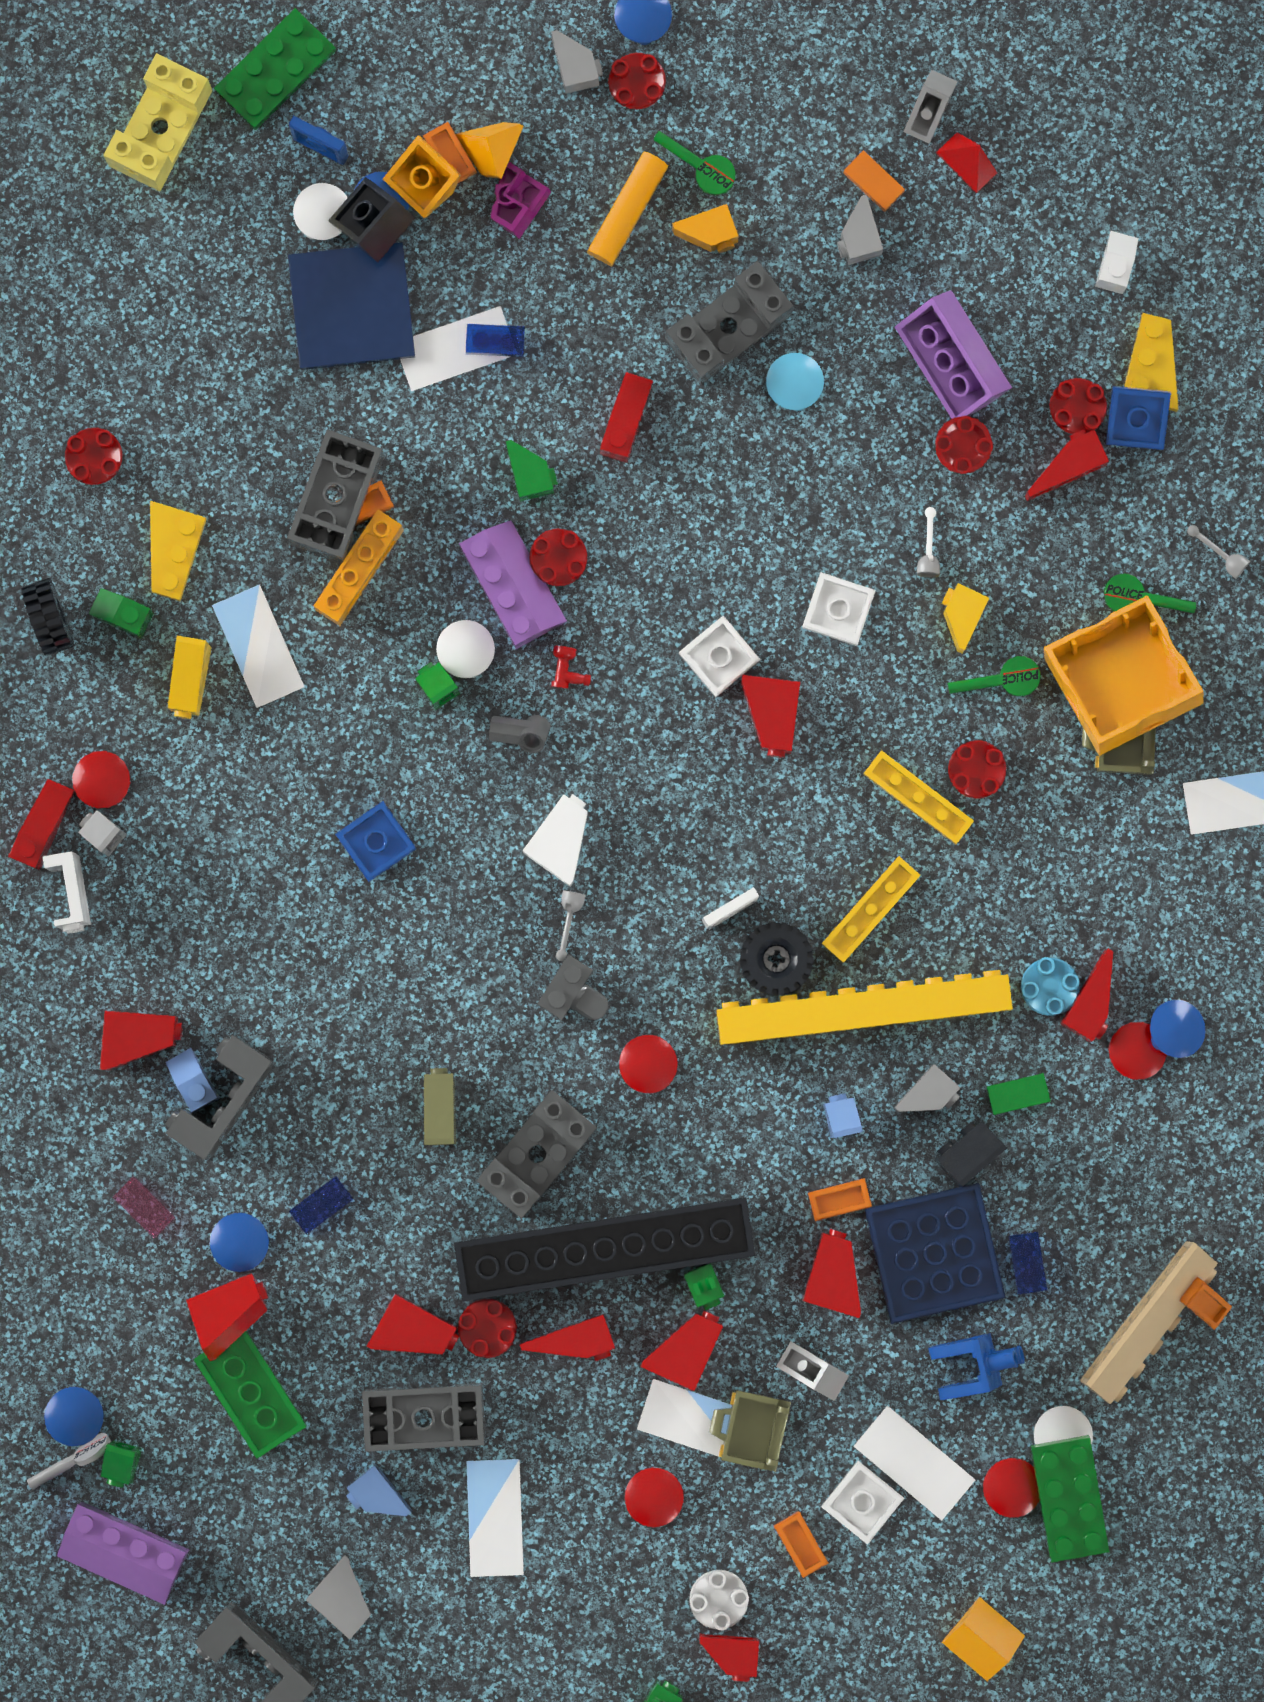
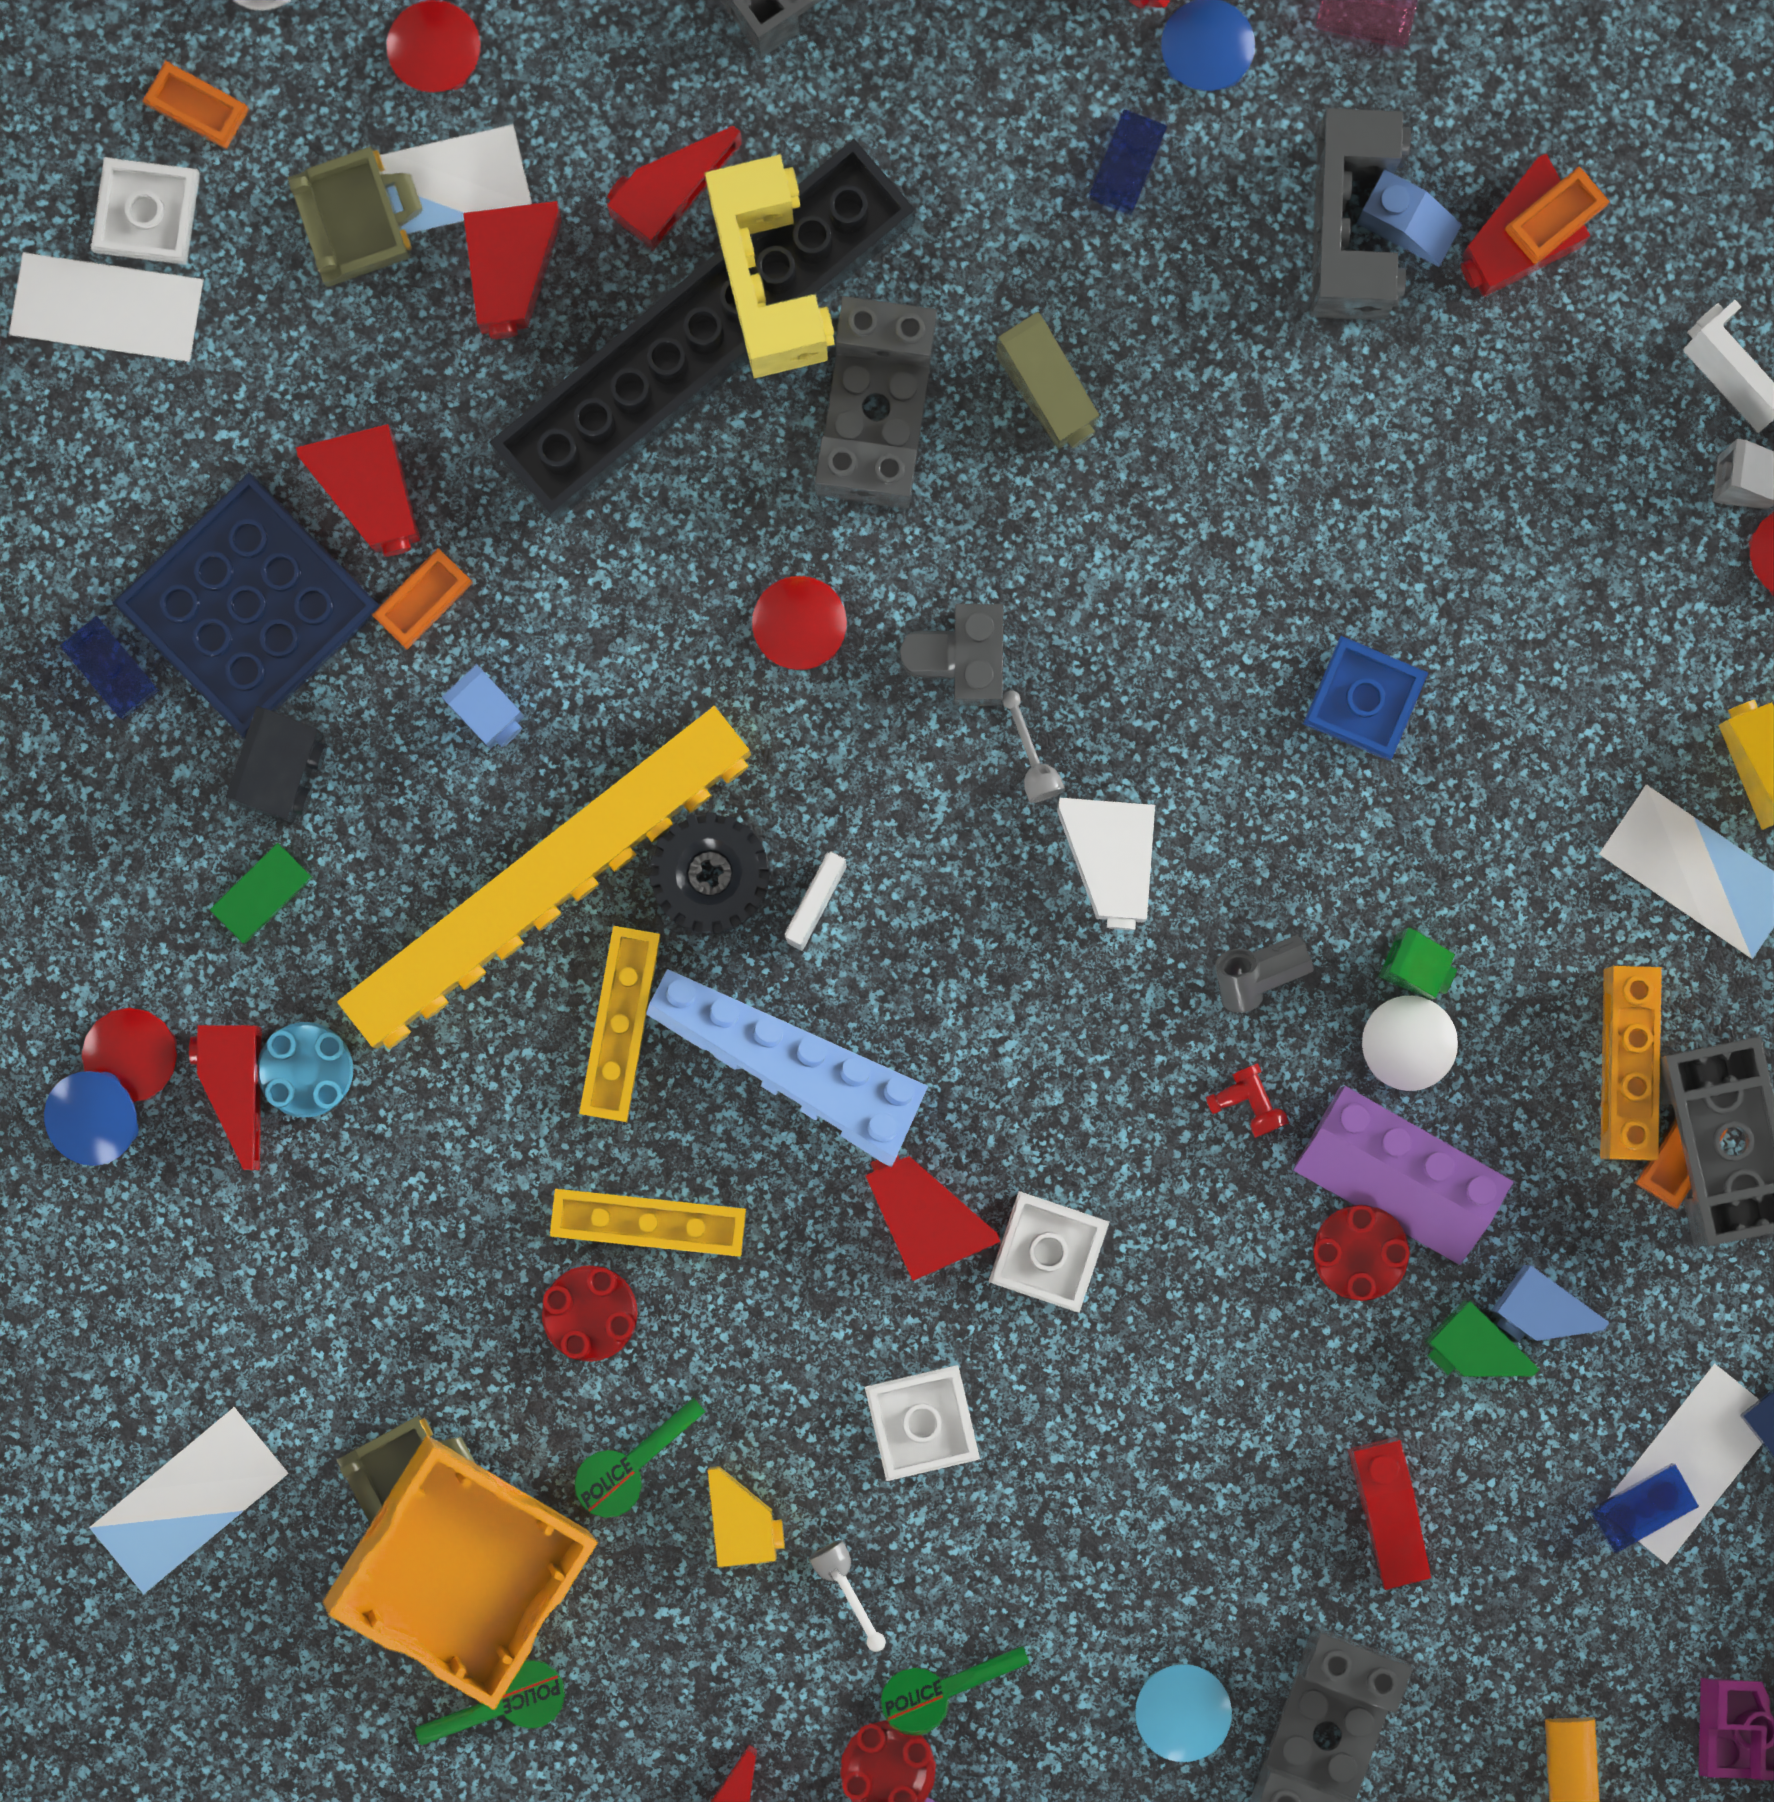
camera: 150 degrees right, 0 degrees up
(116, 1031) = (1557, 215): none -> orange tile
(412, 1329) = (898, 68): red slope -> none
(483, 470) = (1542, 1309): none -> medium blue slope
(487, 1328) = (800, 128): red dish -> none
(541, 1295) = (750, 201): none -> light yellow plate
(704, 1286) = (535, 363): green brick -> none
(779, 810) = (828, 1081): none -> light blue wing
(812, 1371) = (318, 341): light grey slope -> none
(927, 469) = (918, 1700): none -> green piece
(930, 1092) = (384, 817): light grey slope -> none
(988, 1360) = (81, 499): blue piece -> none

